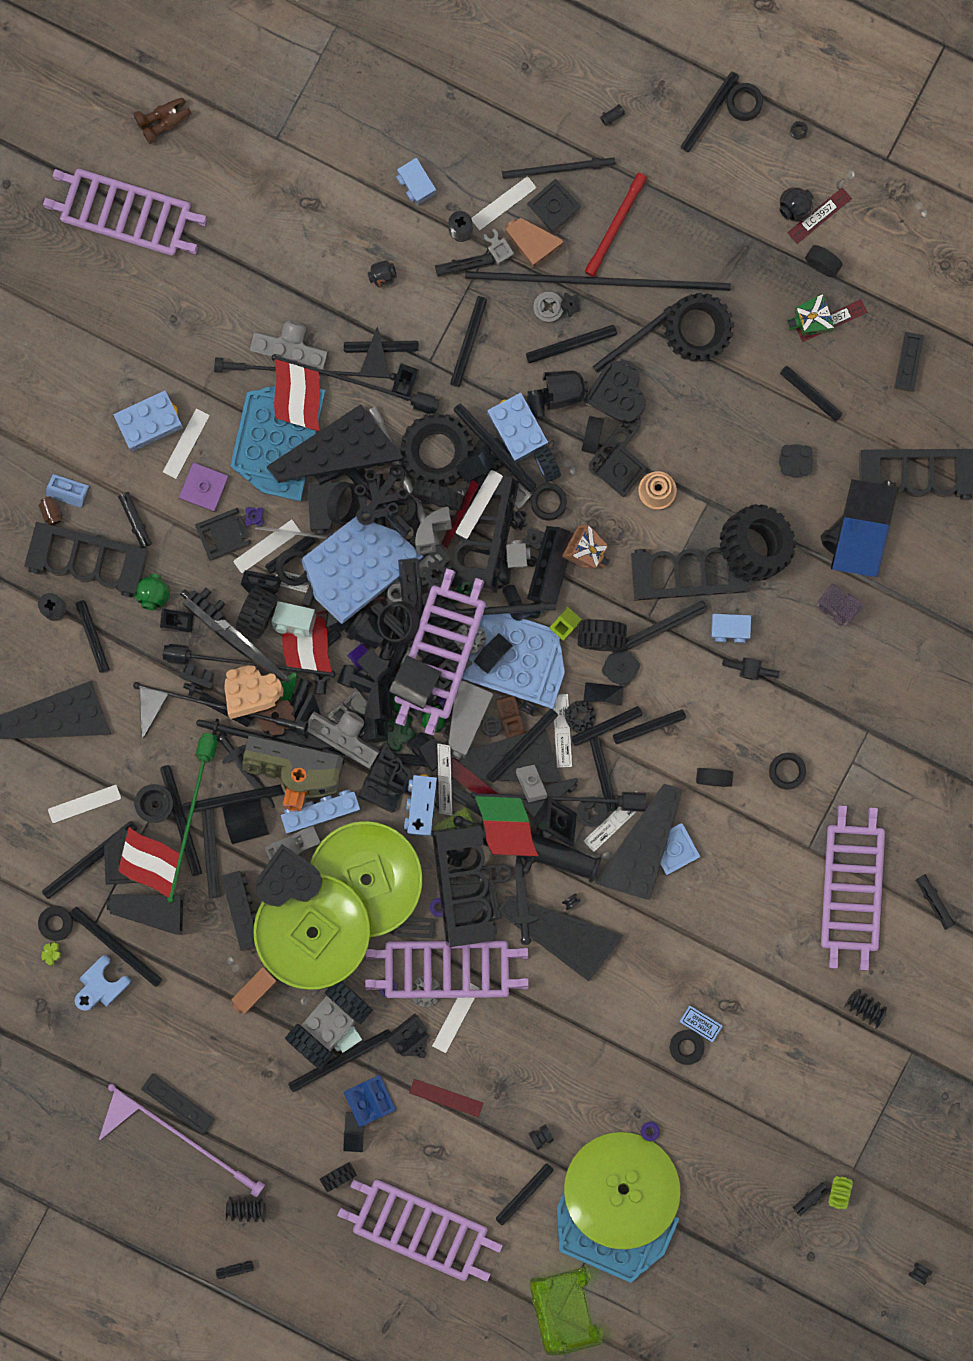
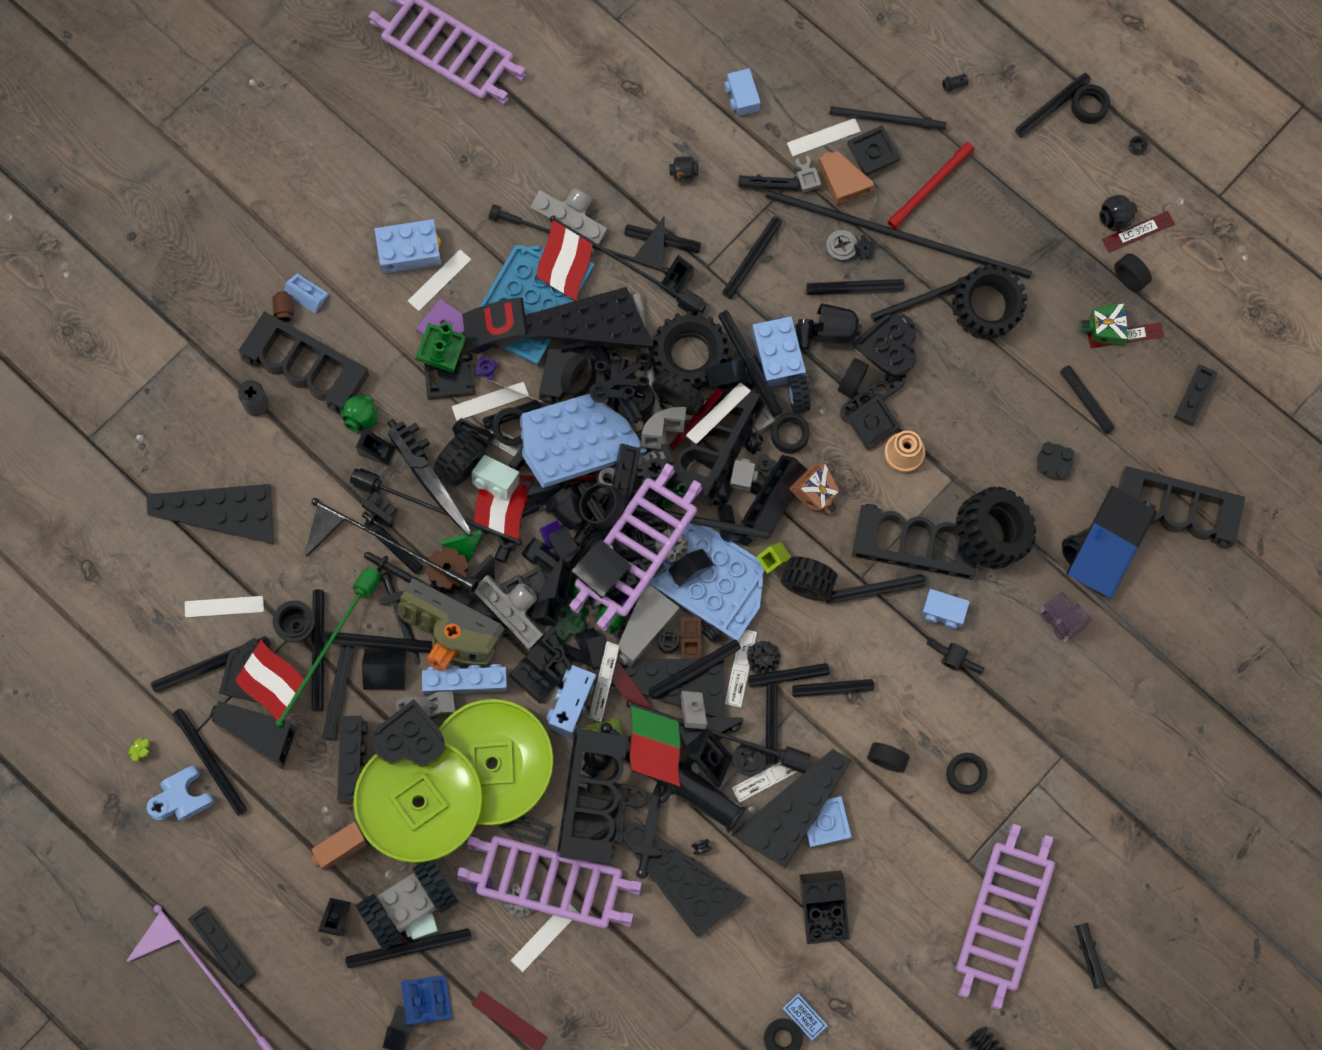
camera: 10 degrees right, 10 degrees down
(55, 911) = (157, 732): black tyre -> none
(92, 636) = (285, 441): black axle -> none
(135, 521) = (366, 347): black pin -> none
(208, 511) = (440, 347): none -> green plate
(249, 691) = (429, 536): light nougat plate -> none
(252, 477) = (495, 325): none -> black slope
(269, 1052) = (335, 917): none -> black slope
(300, 696) = (477, 558): black pin -> none
(409, 1038) = (488, 944): black slope -> none
(433, 907) = (555, 809): dark purple plate -> none
(455, 221) = (775, 143): black piece -> none
(464, 799) = (618, 709): black axle -> none
(603, 694) = (794, 641): black slope -> none
(620, 667) = (819, 619): black piece -> none
(692, 923) = (824, 906): none -> black slope

